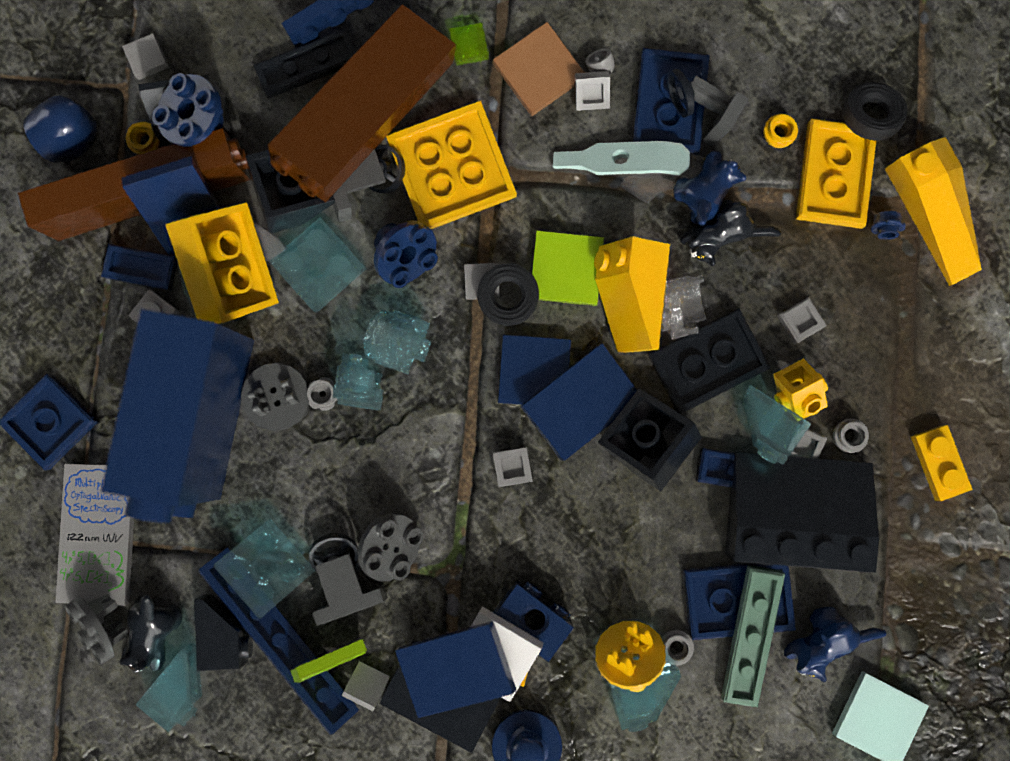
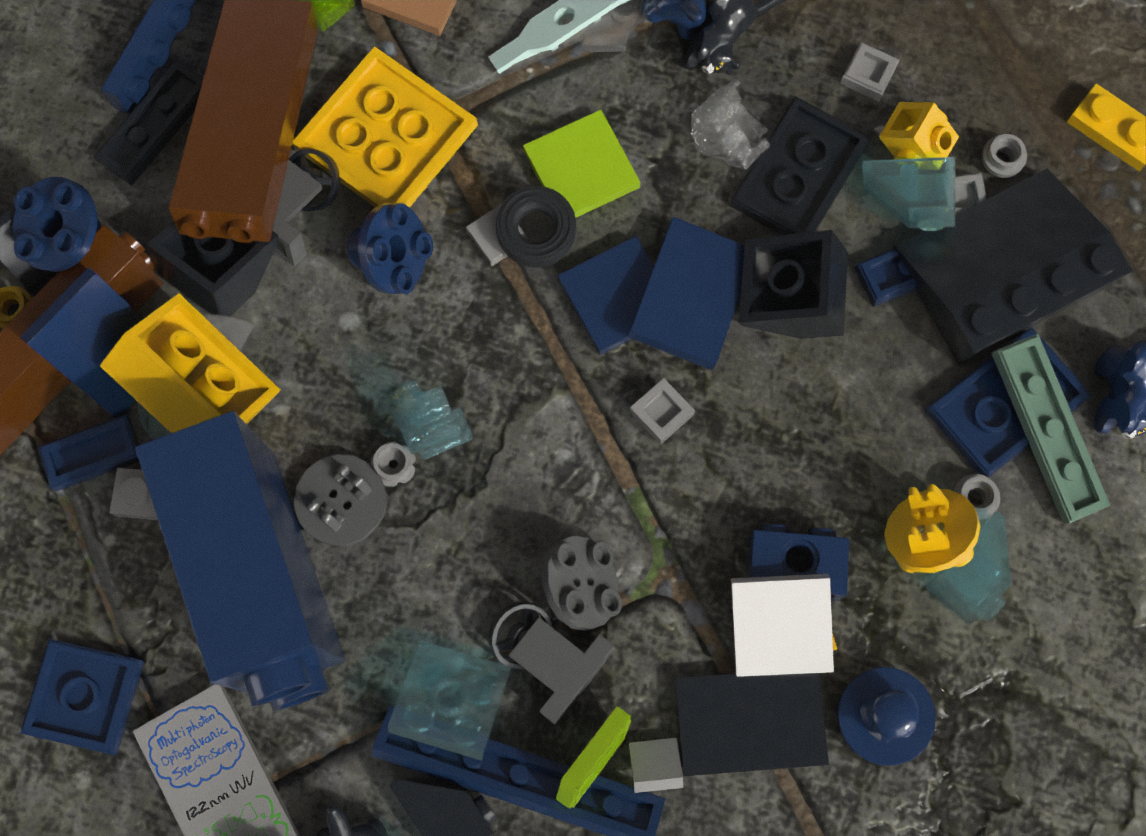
camera: 30 degrees left, 10 degrees down
(317, 265) = (299, 327): clear light blue plate -> none
(396, 340) = (442, 351): clear light blue hair -> none
(456, 670) = (748, 670): dark blue tile -> none
(632, 290) = (671, 138): yellow slope -> none

